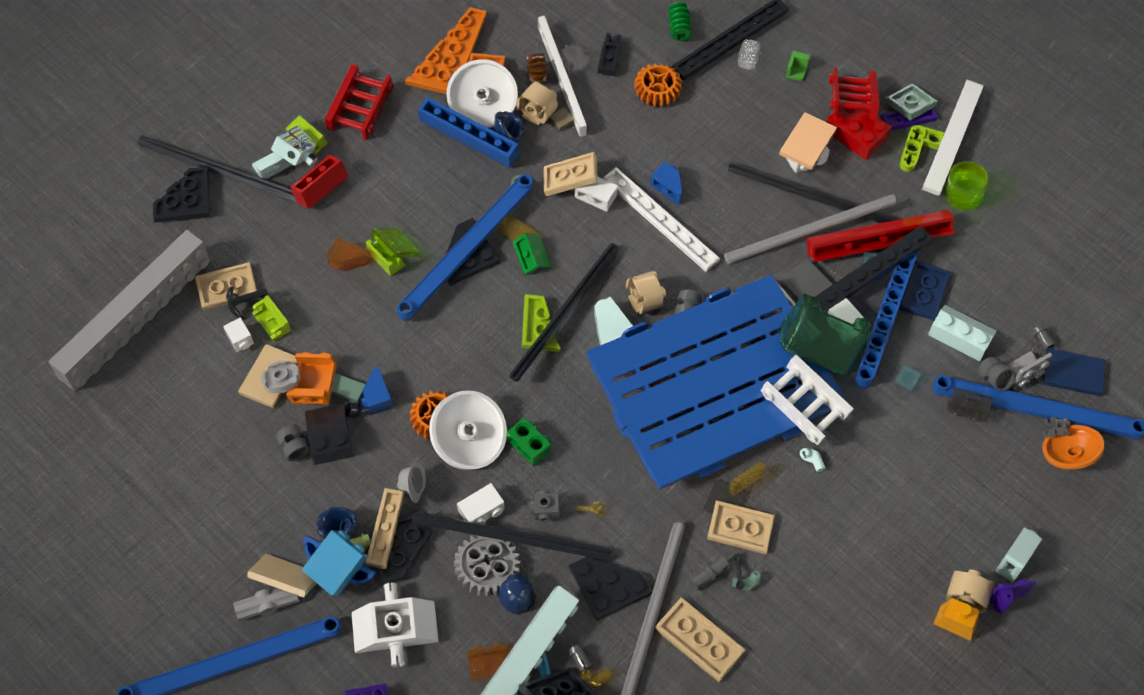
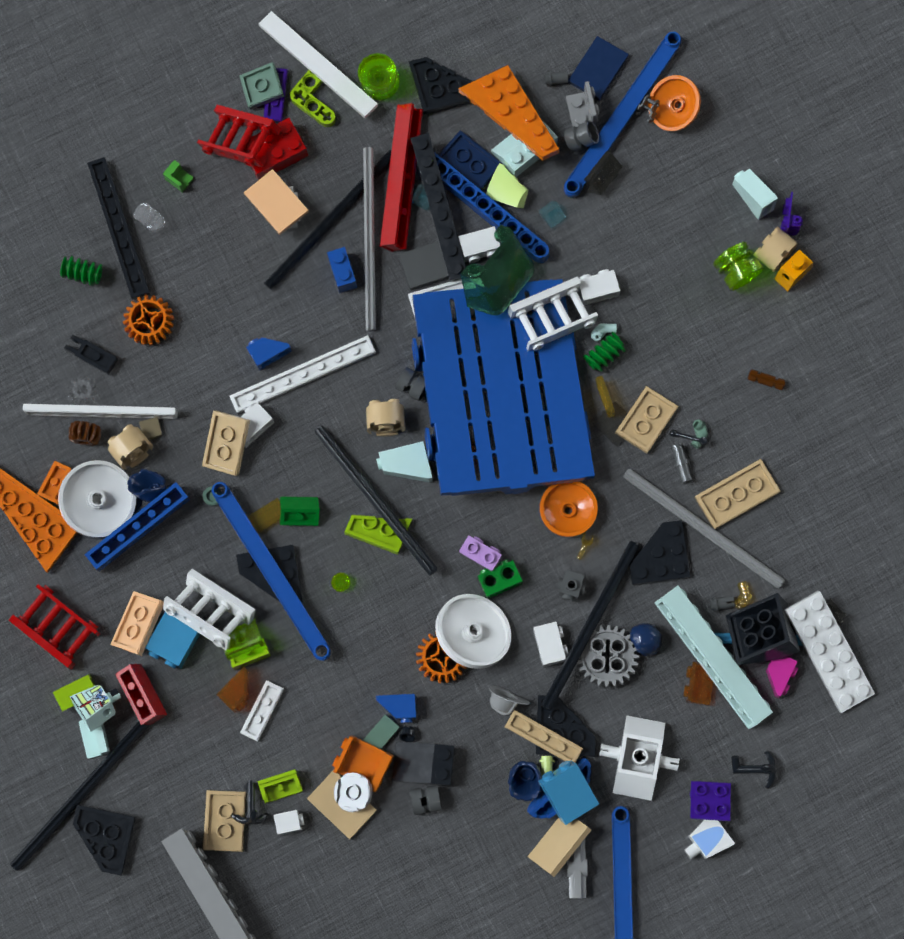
camera: 65 degrees left, 15 degrees up
(337, 284) = (262, 711): none -> white tile
(379, 193) = (172, 641): none -> dark azure brick
(382, 160) = (137, 623): none -> light nougat tile
(429, 206) = (213, 593): none -> white fence
(478, 309) = (340, 582): none -> clear neon green plate
(546, 414) = (480, 553): none -> lavender bracket
(620, 467) = (573, 496): none -> orange dish
(770, 216) = (342, 270): none -> blue brick
(791, 465) = (604, 352): none -> green piece
(831, 630) = (766, 379): none -> reddish brown axle
(854, 438) = (598, 287): none -> white brick
(913, 327) = (506, 188): none -> yellowish green slope
(935, 559) = (736, 263): none -> clear neon green wheel
(984, 241) = (437, 85): none -> black plate
(992, 300) = (510, 108): none -> orange wing

